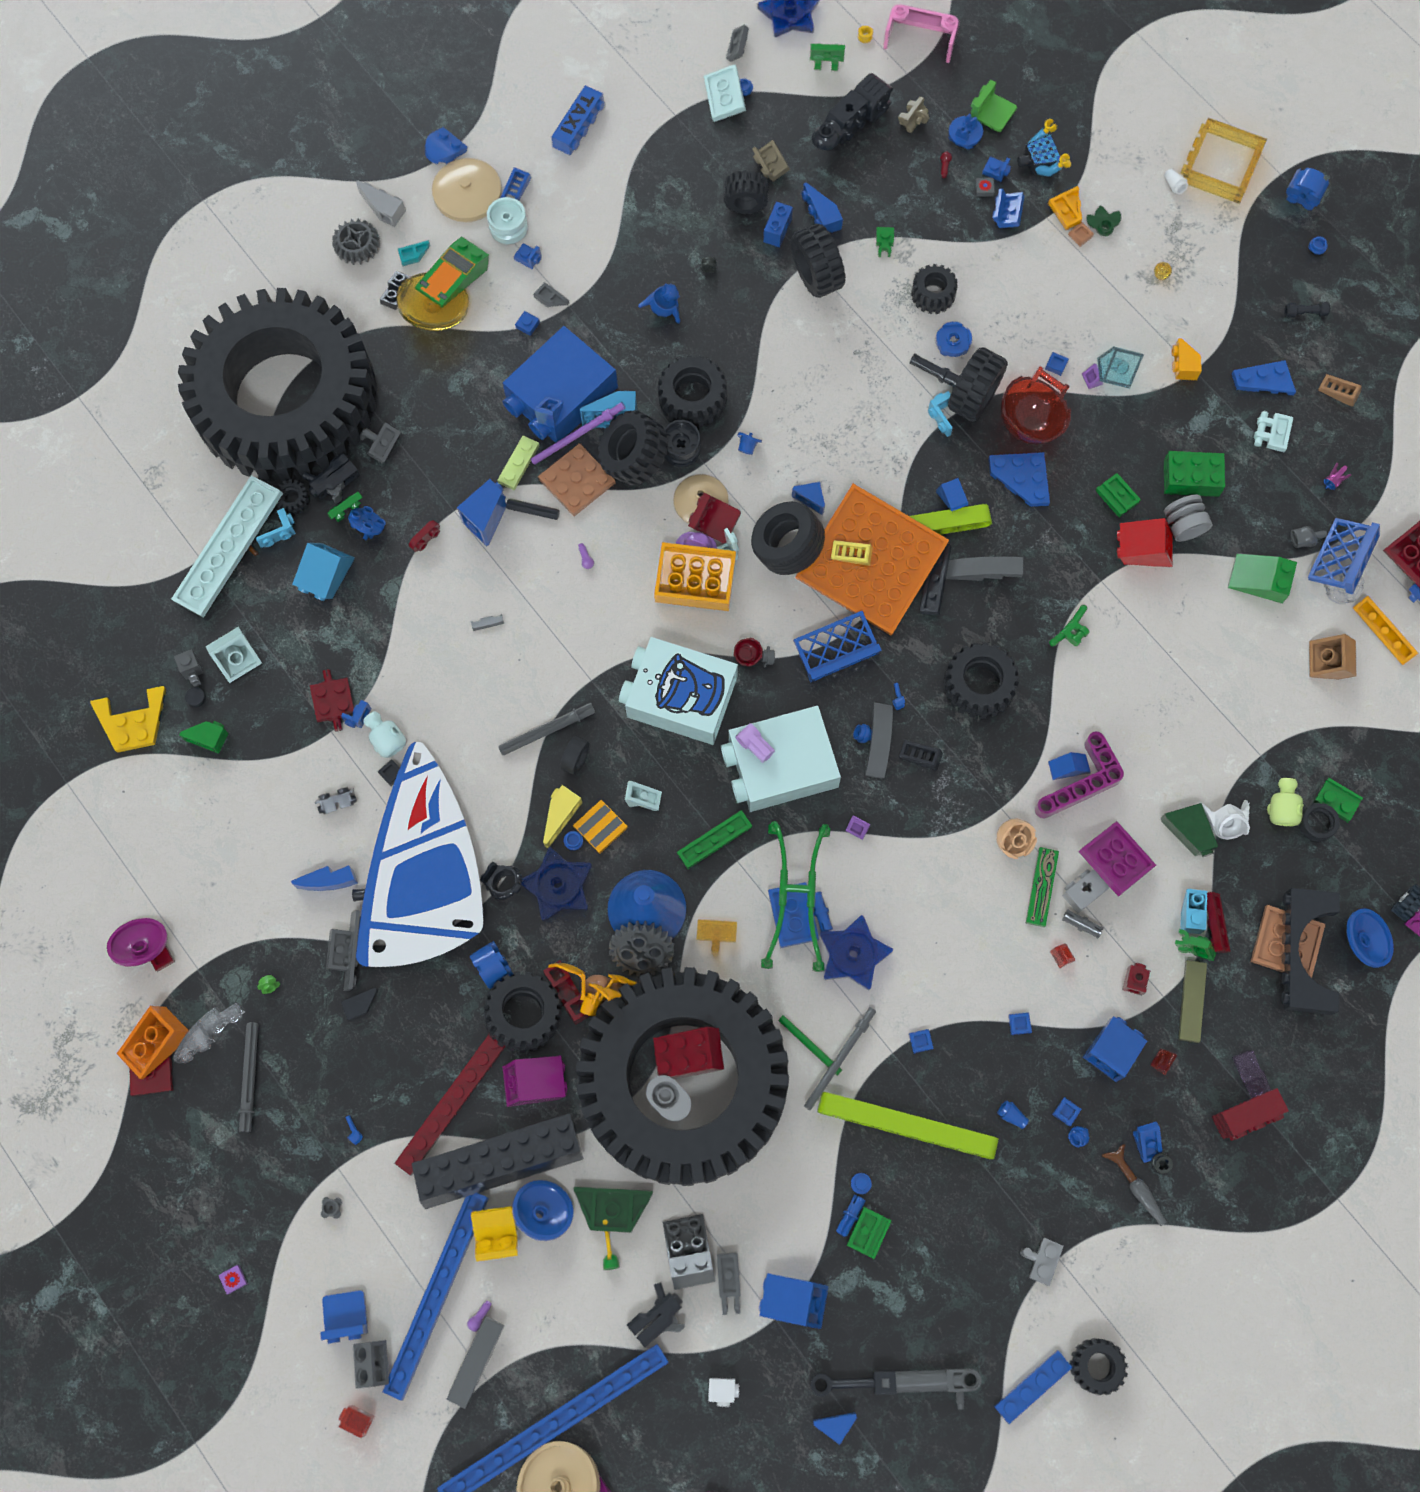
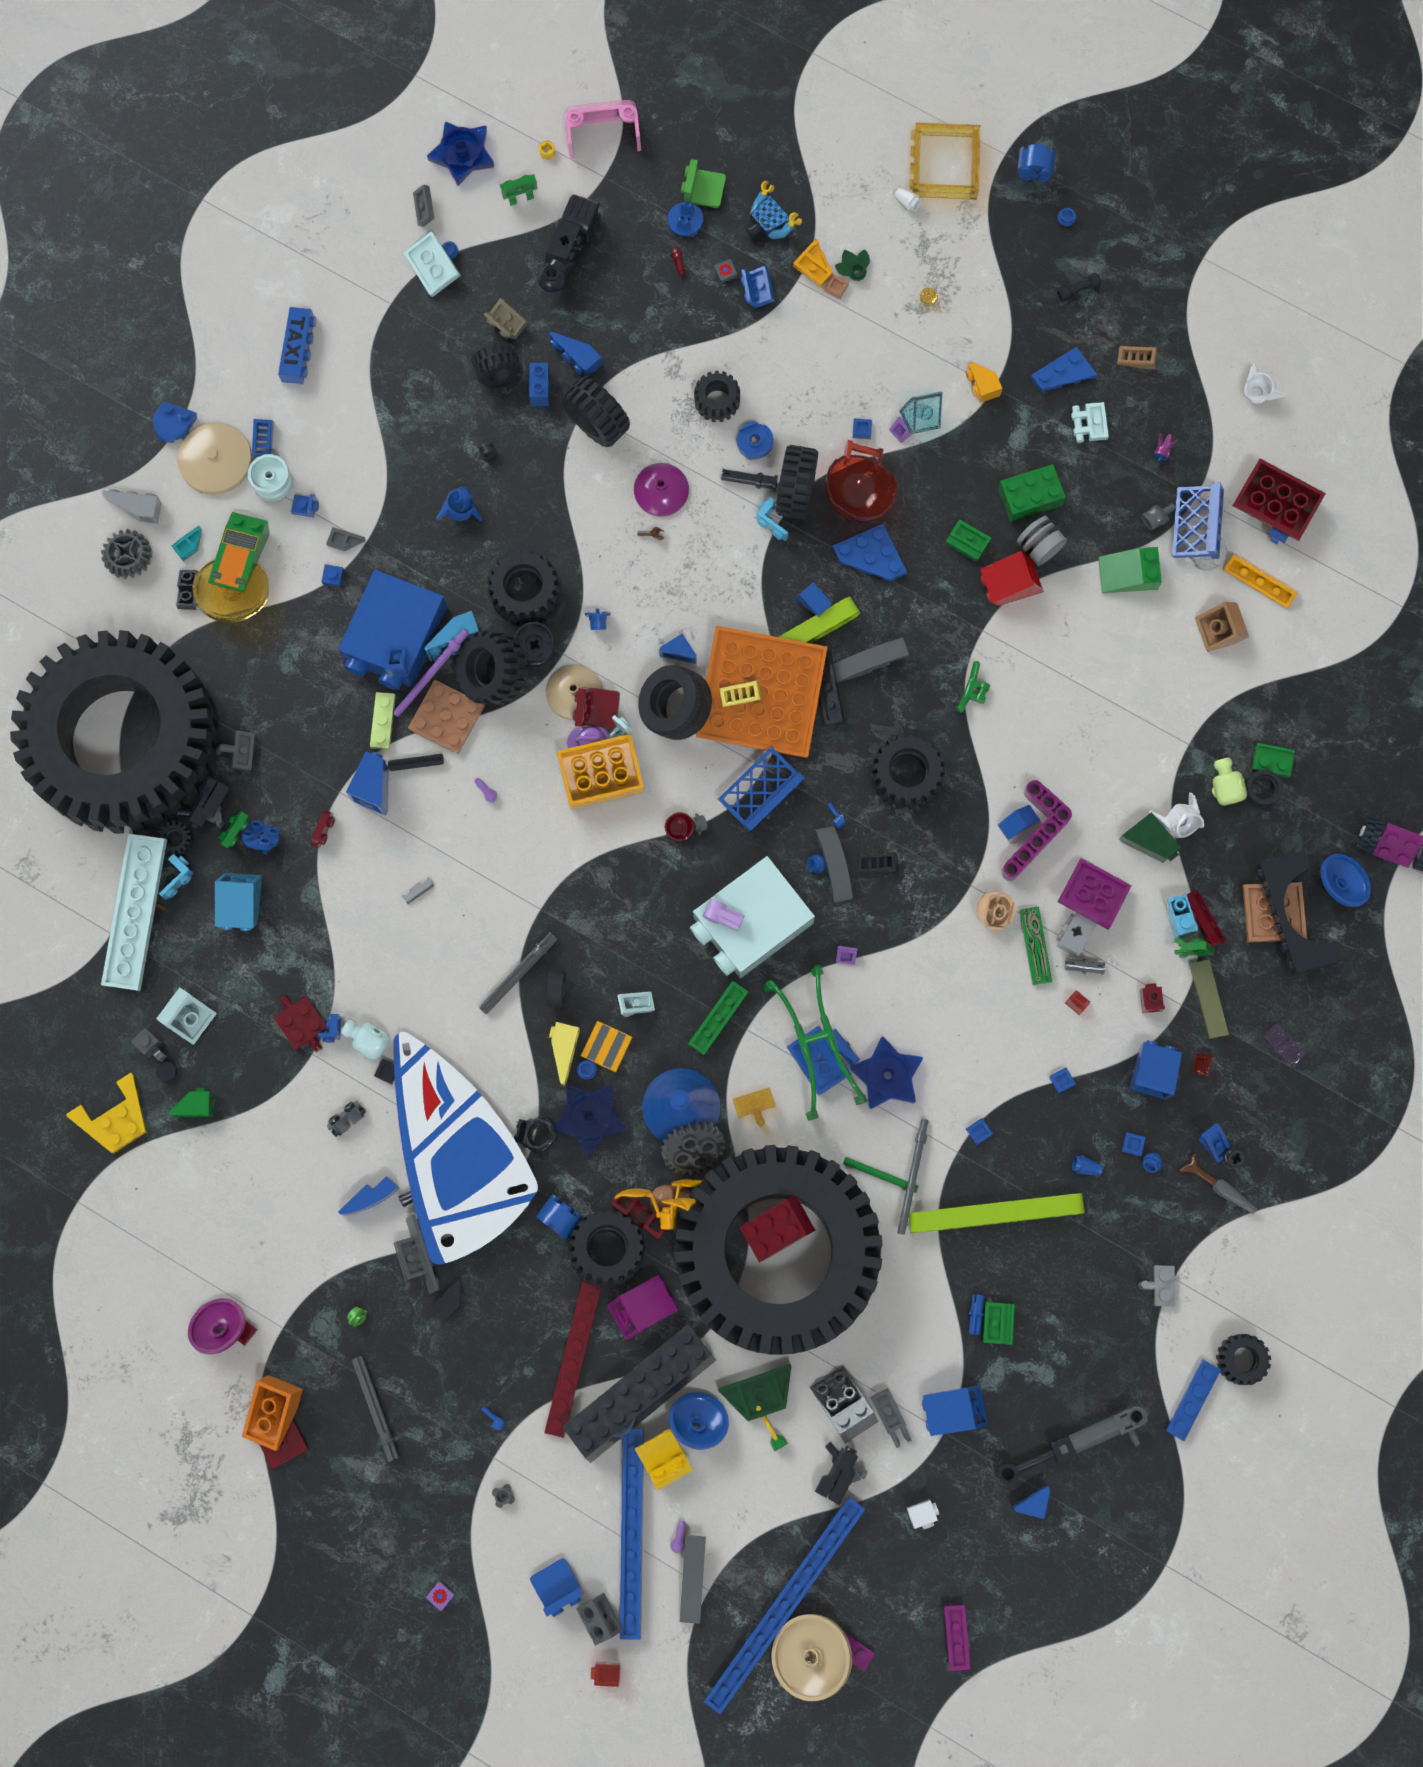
camera: 20 degrees left, 5 degrees up
(199, 1036) = (313, 1389): clear slope -> none
(668, 1098) = (775, 1276): light grey piece -> none
(679, 690) = (629, 888): light aqua brick -> none
(830, 387) = (654, 533): none -> reddish brown hand
(851, 361) = (665, 499): none -> magenta dish
(861, 1183) = (974, 1282): blue plate -> none
(885, 239) = (649, 360): green plate -> none
(916, 114) = (631, 220): dark tan hips -> none
(997, 169) = (730, 247): blue bracket -> none
(1250, 1115) = (1296, 1084): dark red brick -> none

